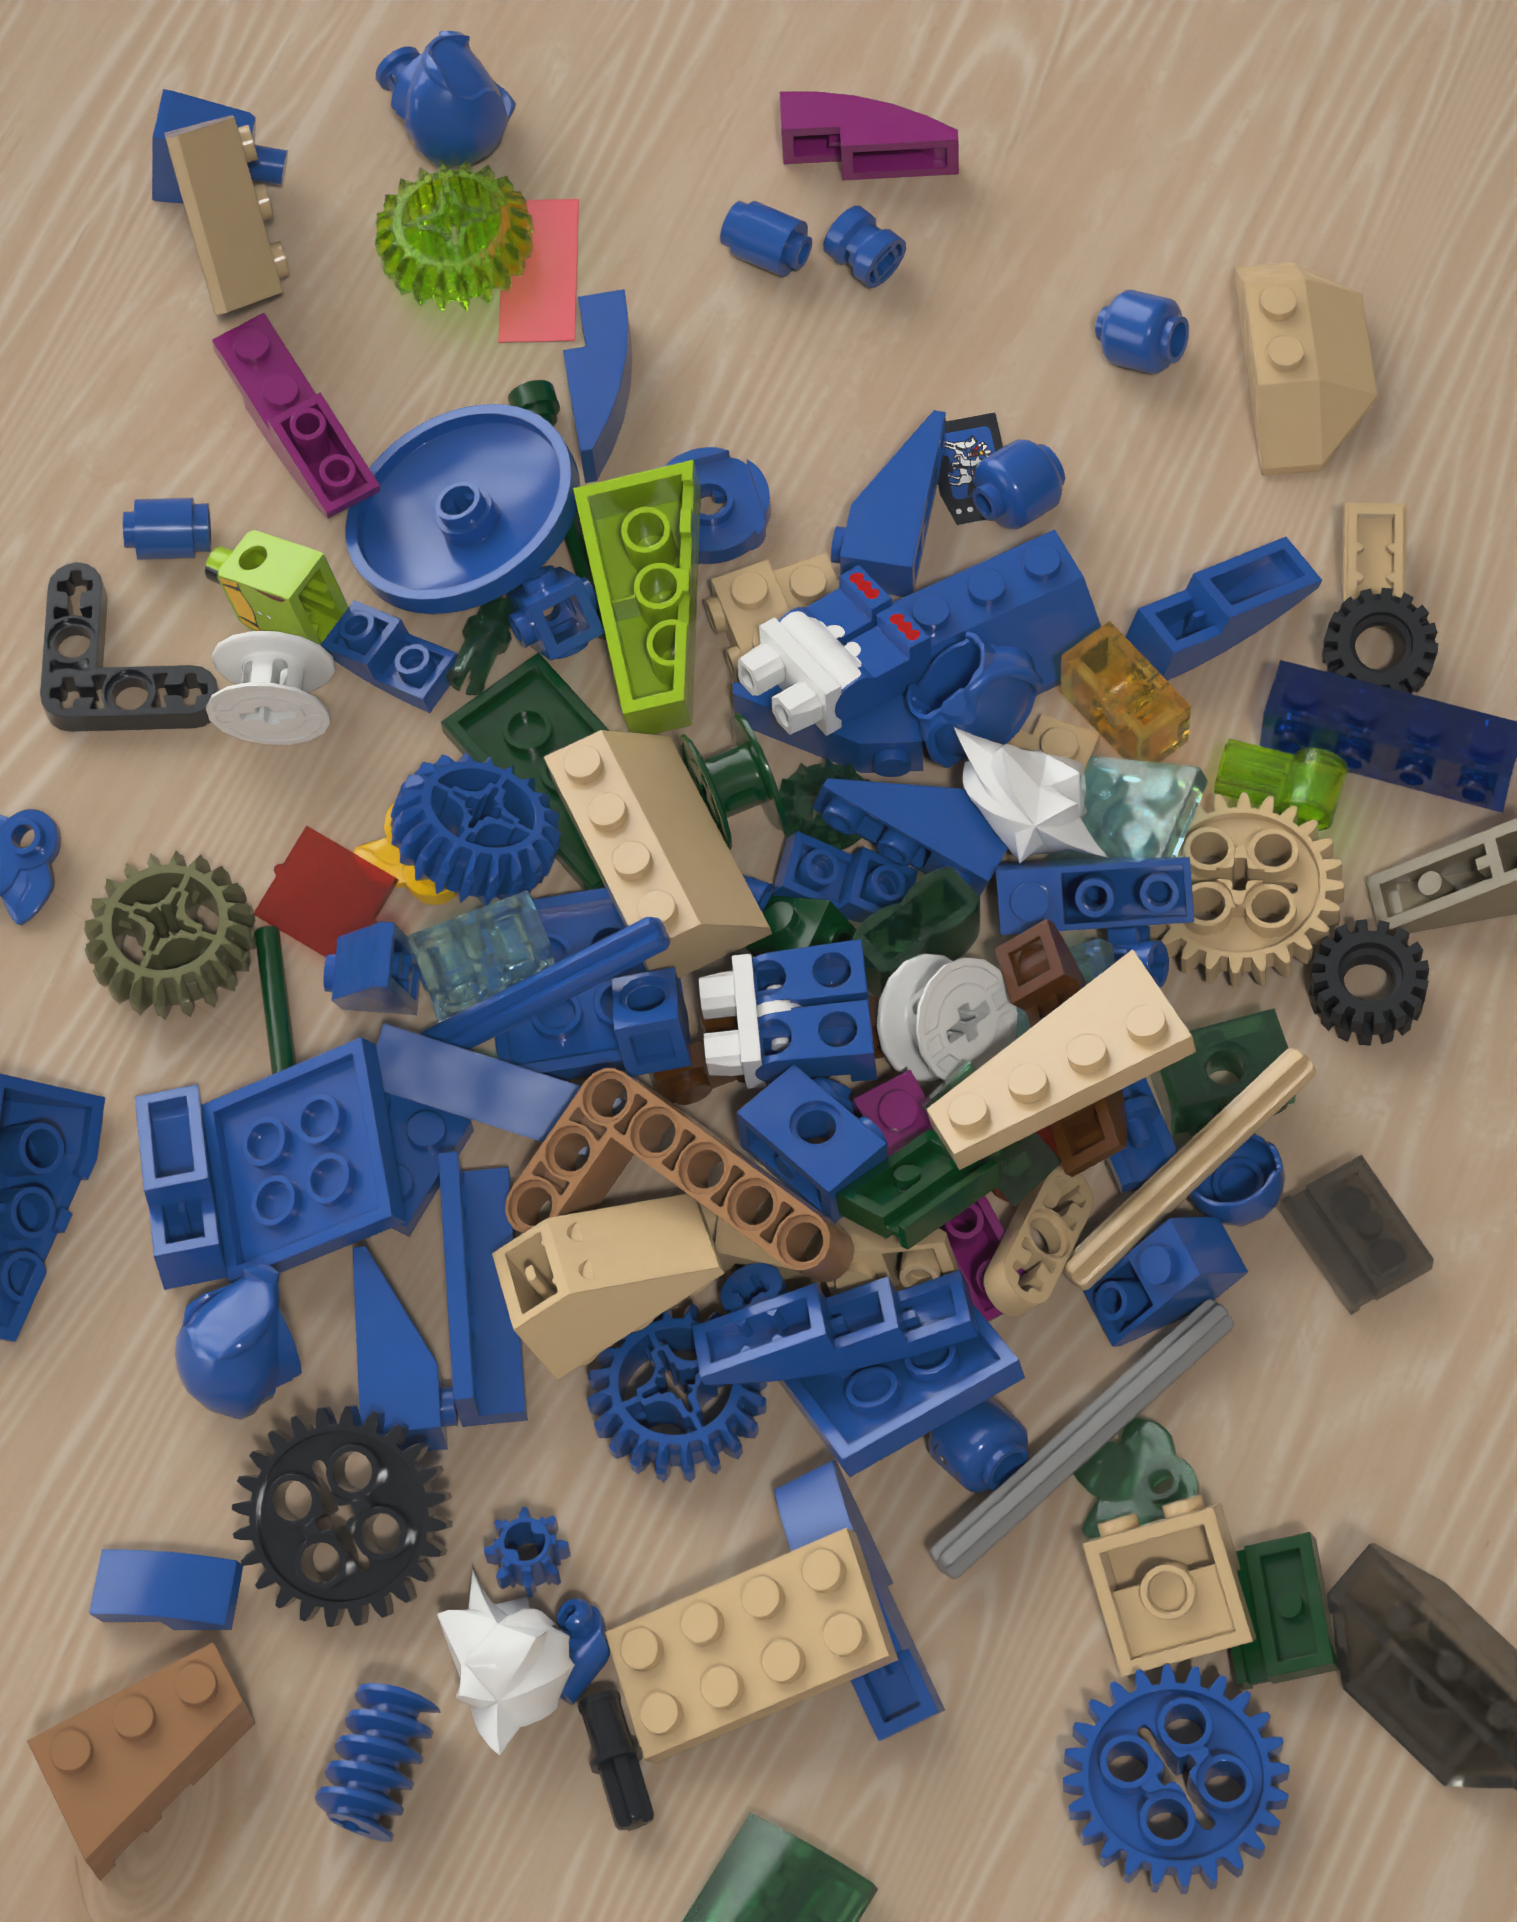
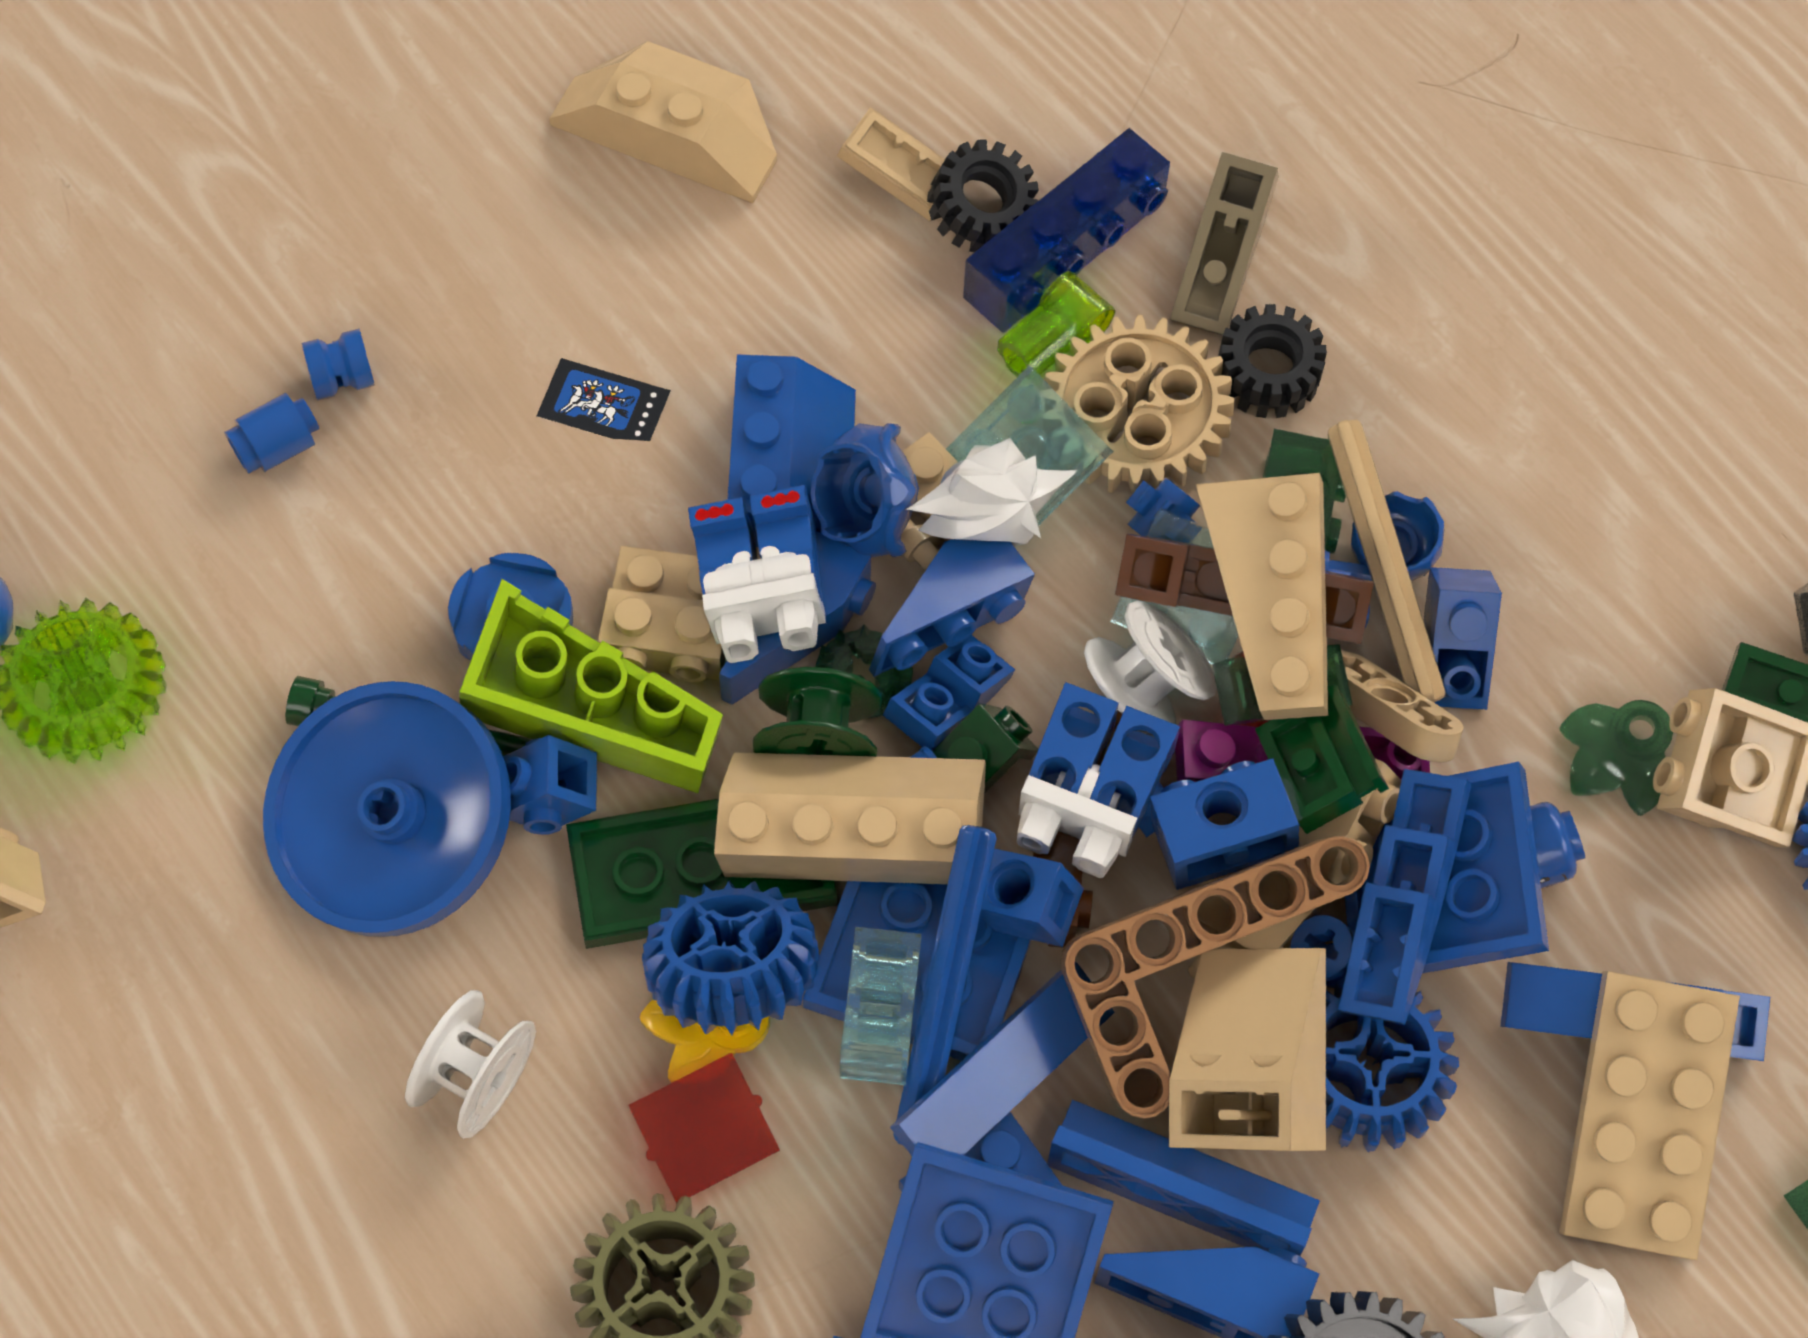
camera: 70 degrees left, 0 degrees up
(87, 674) = (322, 1236): black beam -> none
(167, 528) = (217, 1083): blue brick -> none
(275, 998) = (794, 1230): dark green bar -> none
(278, 586) = (363, 1009): lime torso -> none
(294, 417) = (183, 914): magenta slope -> none
(373, 971) = (837, 1108): blue slope -> none
(389, 657) = (484, 952): blue slope -> none
(485, 638) = (524, 861): clear green pin -> none
(522, 1532) = (1475, 1248): blue gear -> none
(544, 299) = (195, 649): coral sticker -> none
(587, 1645) = (1553, 1250): blue arm -> none
(600, 377) = (315, 630): blue slope -> none
(616, 1760) = (1686, 1284): black axle -> none
(866, 135) = (225, 310): magenta slope -> none
(894, 512) = (633, 483): blue slope -> none
(934, 918) = (1045, 648): clear green brick -> none
(1018, 484) = (657, 365): blue head -> none
(1081, 1439) = (1572, 775): light grey axle -> none
(1094, 893) = (1094, 506): blue slope -> none
(1124, 696) = (921, 388): clear yellow brick -> none
(1142, 331) = (572, 207): blue head -> none
(1222, 607) = (869, 289): blue slope -> none
(1356, 1234) = (1488, 482): clear smoke plate -> none

